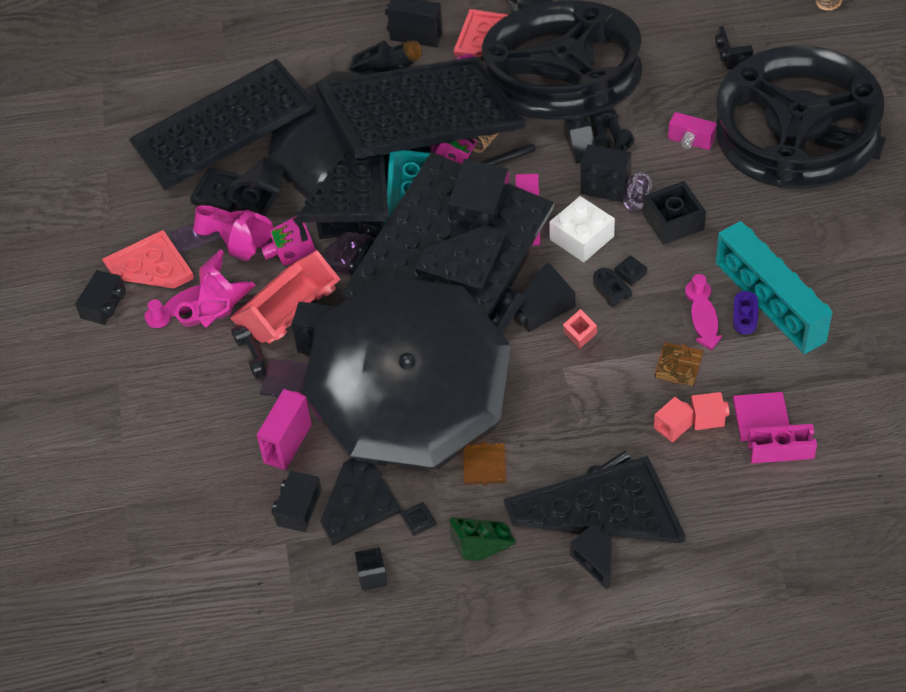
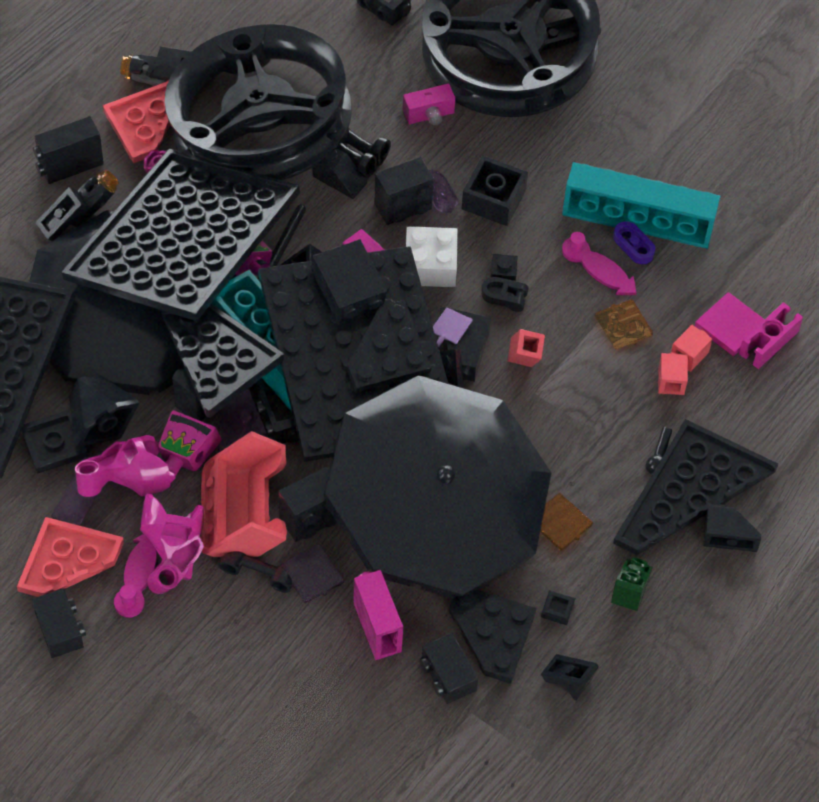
camera: 50 degrees left, 5 degrees up
(537, 279) = (451, 326): none -> lavender piece

